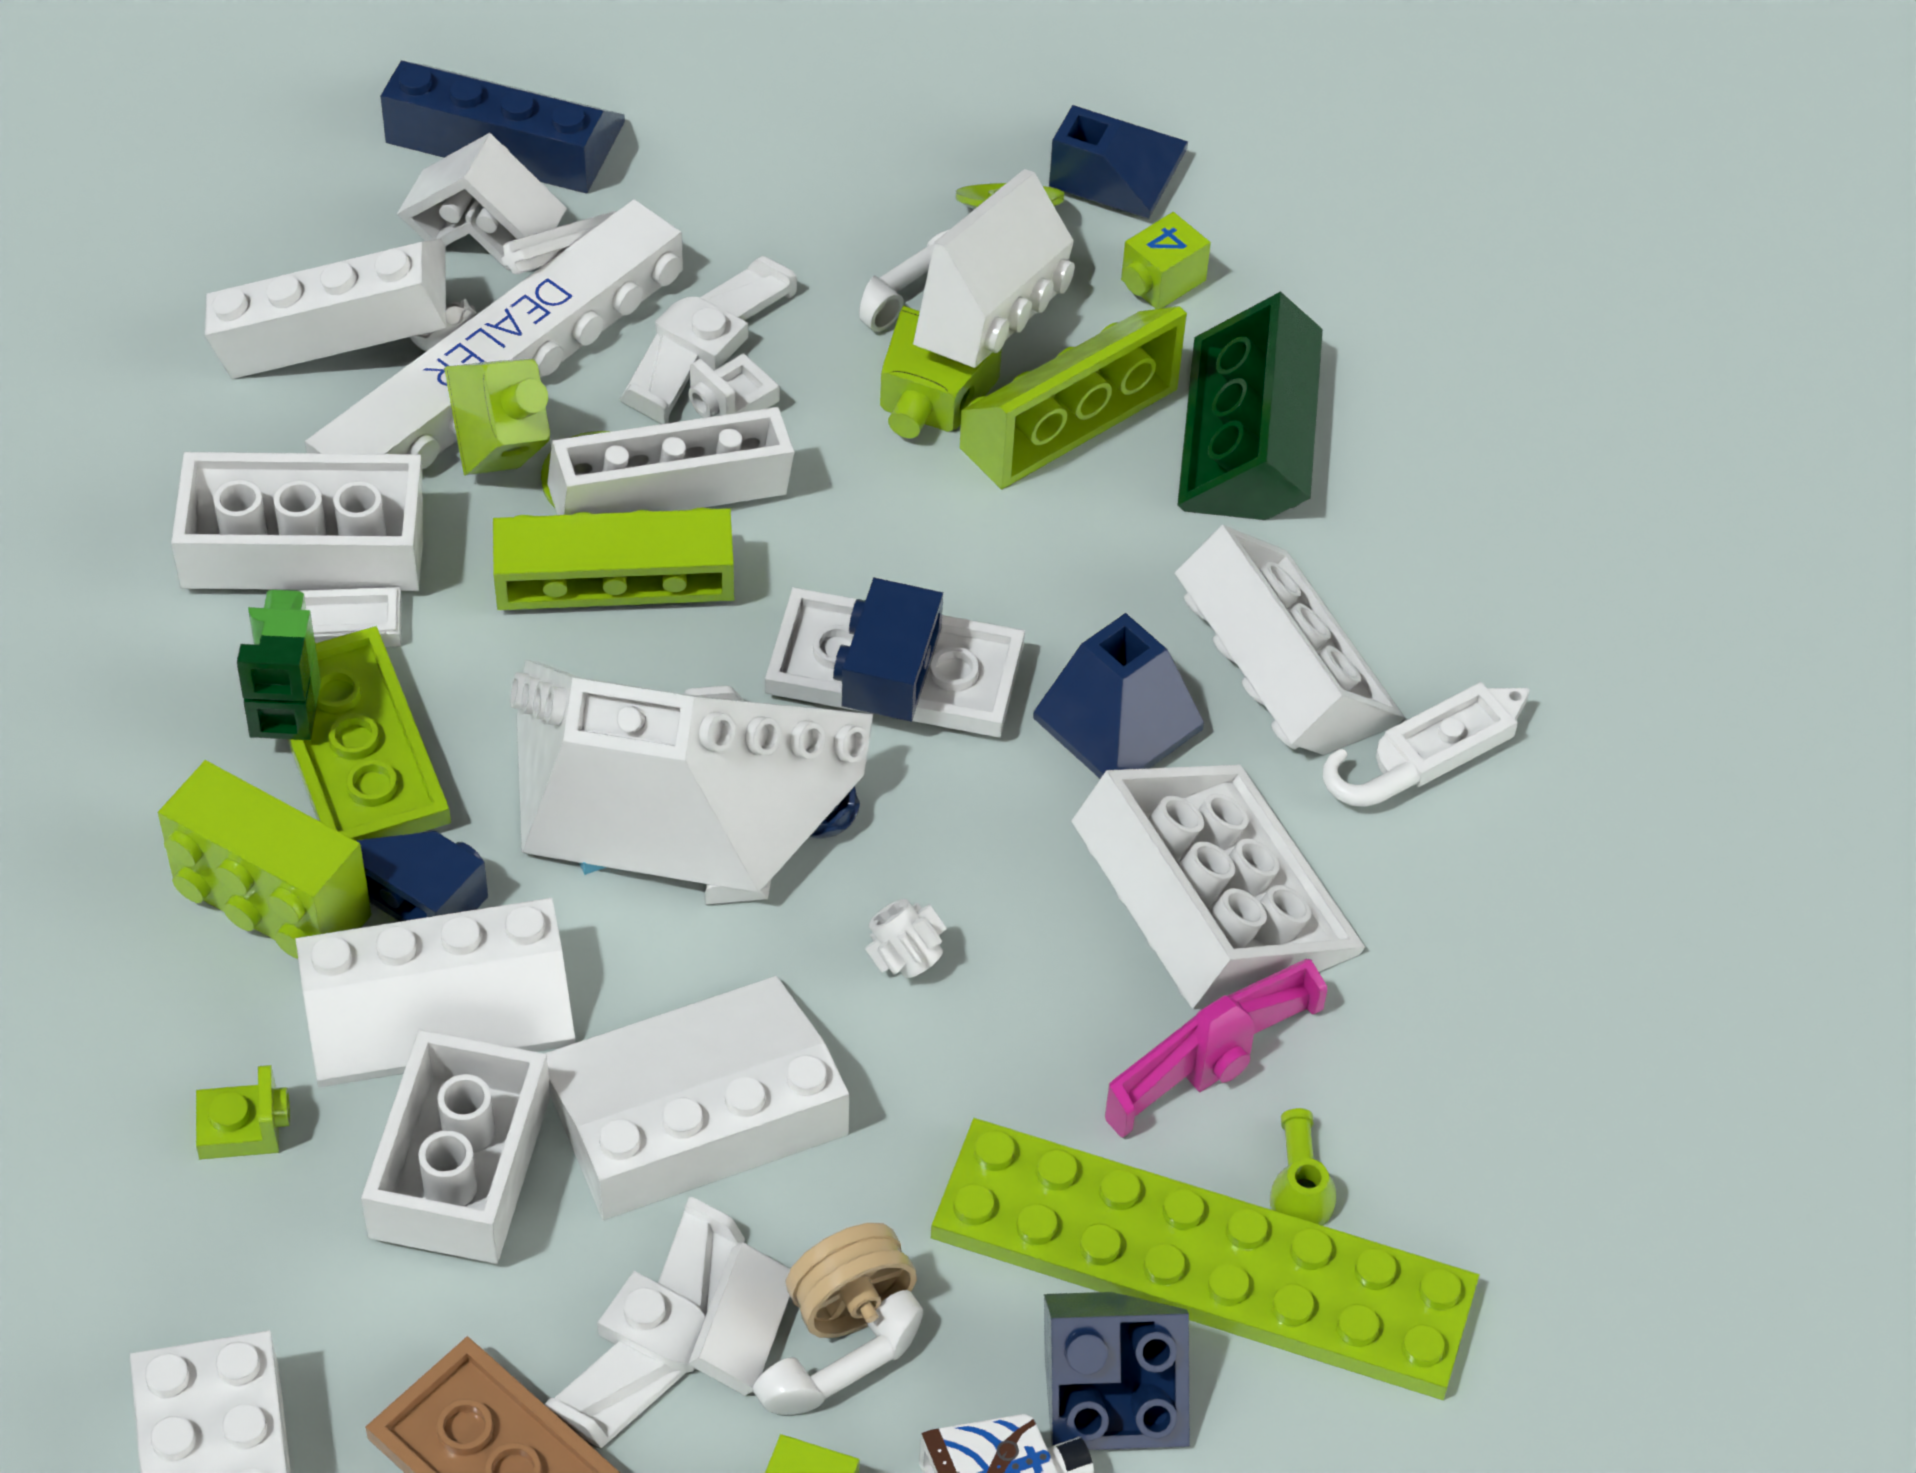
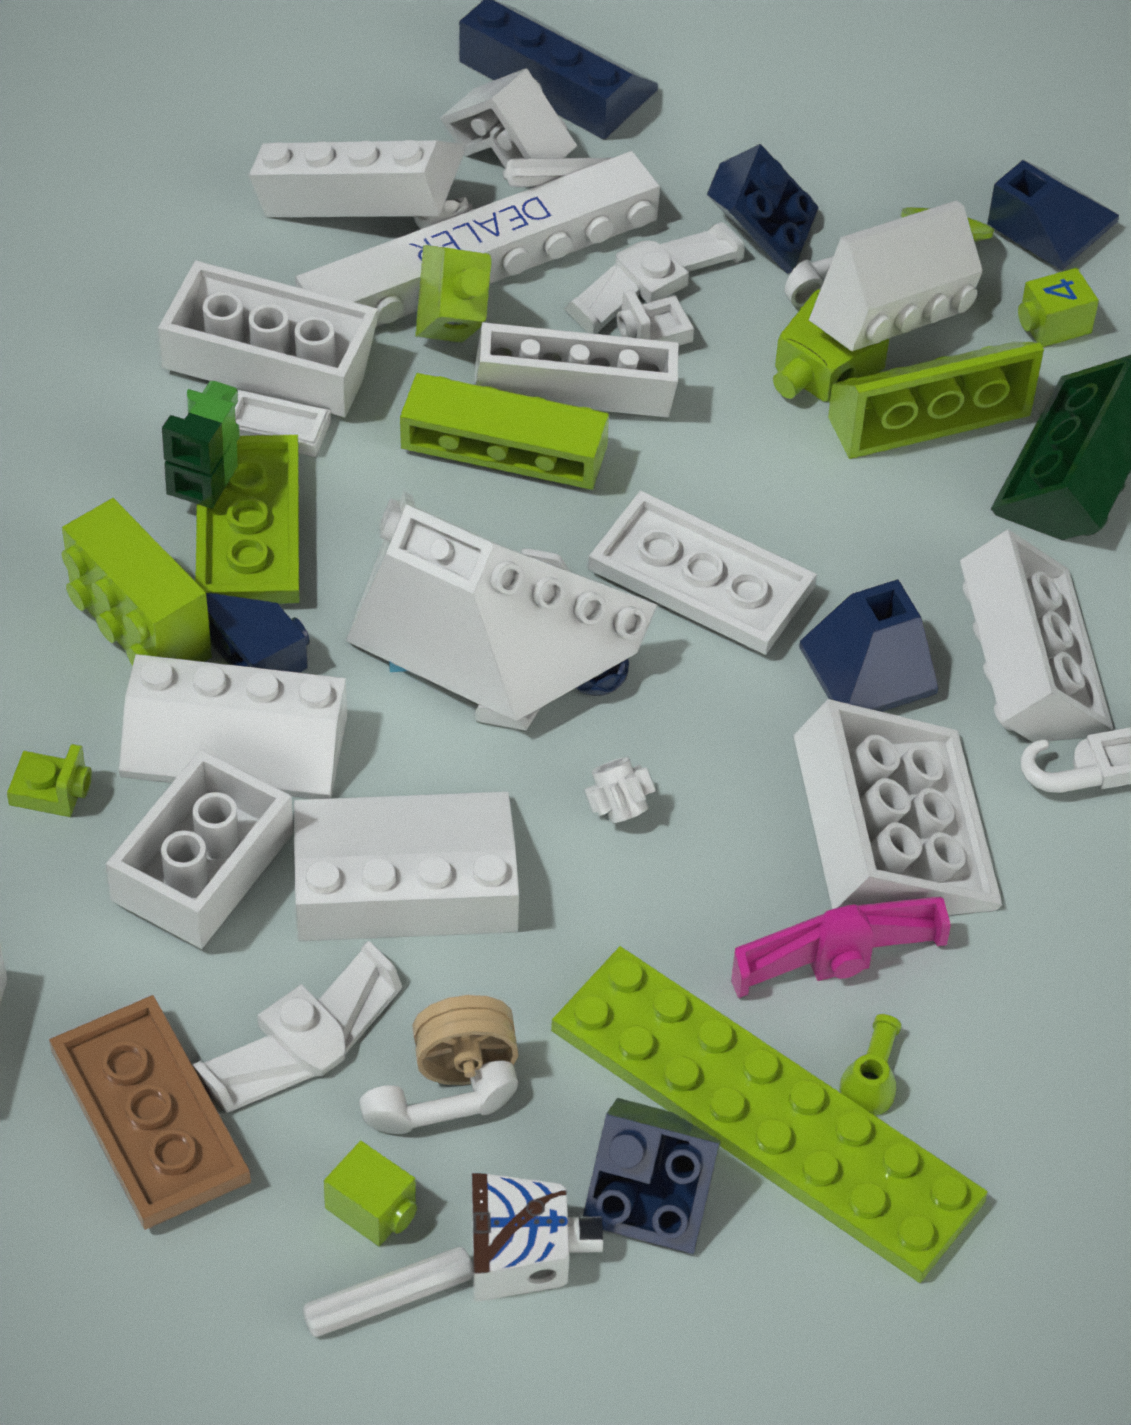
camera: 20 degrees right, 0 degrees up
(742, 1319) = (371, 1046): white tile -> none
(800, 224) = (765, 204): none -> dark blue slope
(889, 649) = (695, 558): dark blue brick -> none

